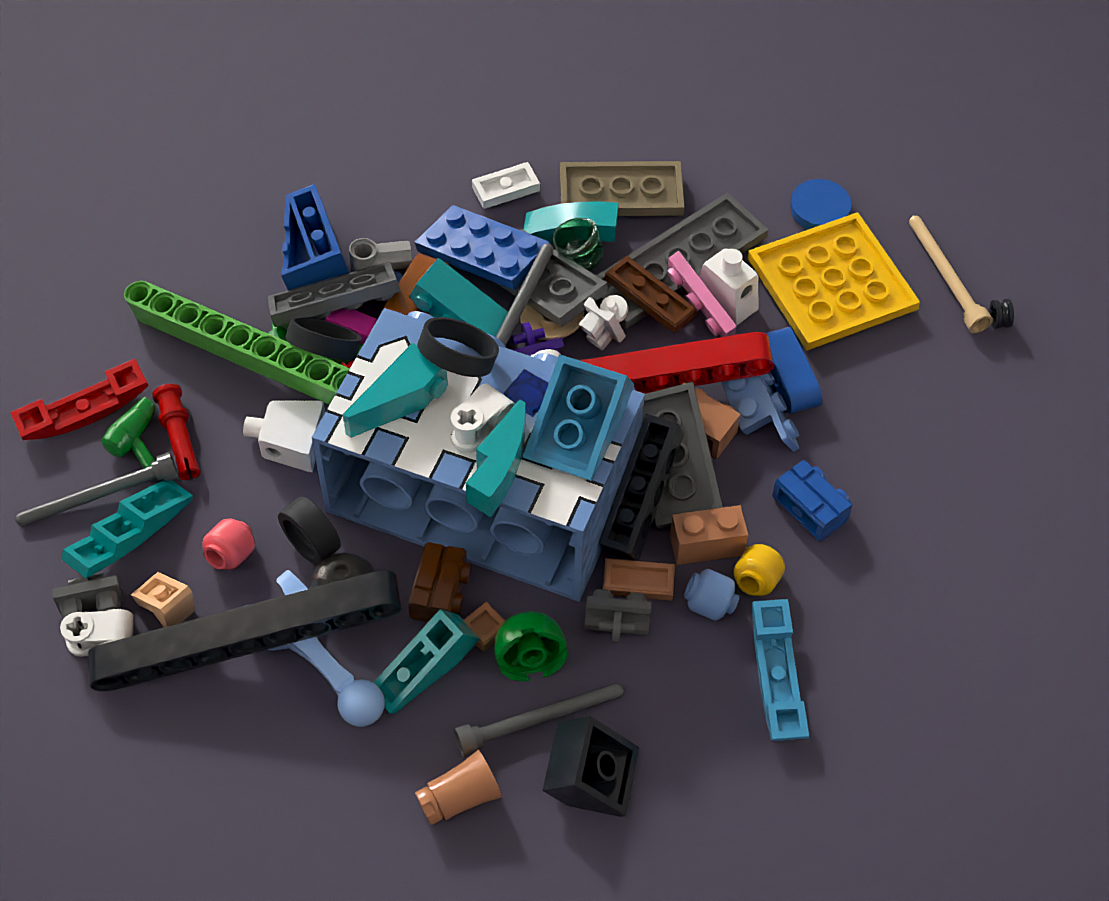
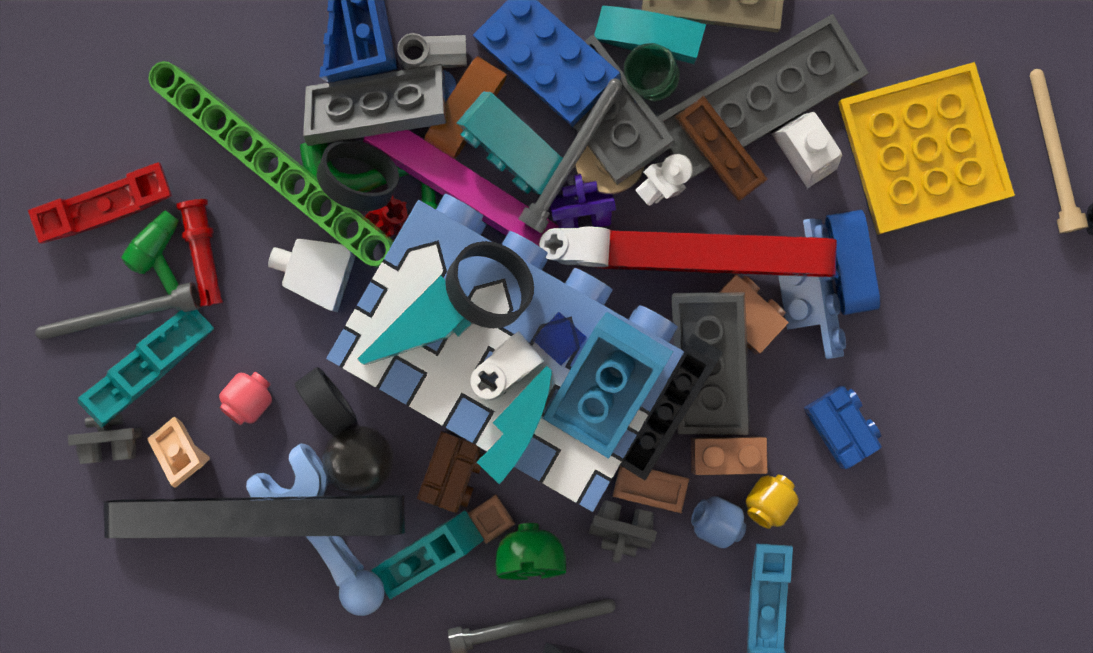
camera: 10 degrees right, 30 degrees up
(96, 629) = (119, 480): white piece -> none
(699, 296) = (773, 162): bright pink plate -> none
(819, 202) = (935, 38): blue tile -> none

